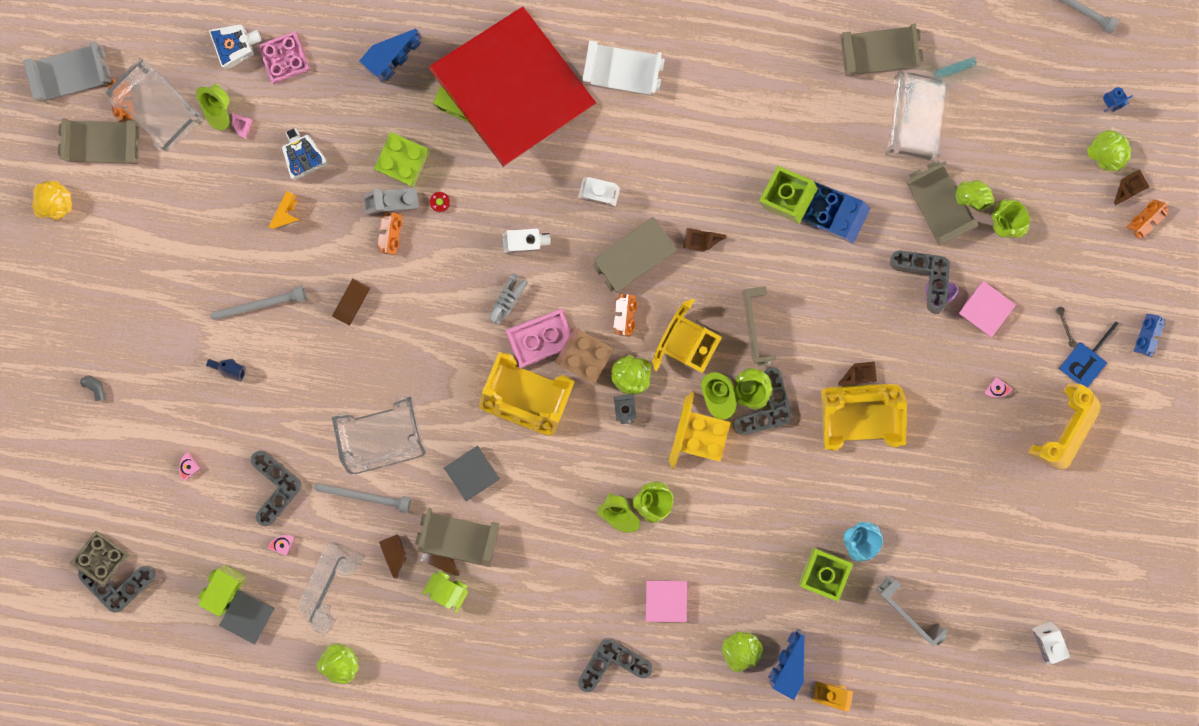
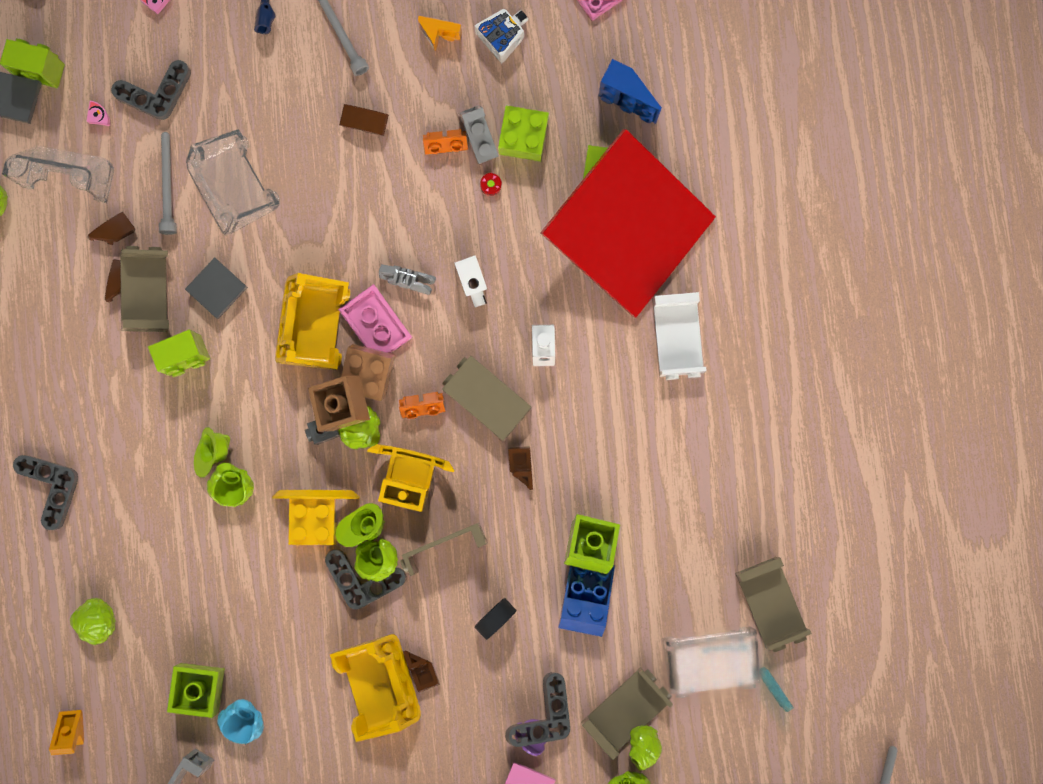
camera: 80 degrees right, 5 degrees down
(445, 591) = (84, 291): lime brick -> none
(524, 518) = (179, 353): none -> lime brick
(608, 384) = (339, 403): none -> medium nougat brick
(666, 601) = (129, 526): bright pink tile -> none
(789, 673) = (78, 677): blue slope -> none
(831, 296) = (495, 618): none -> black tyre

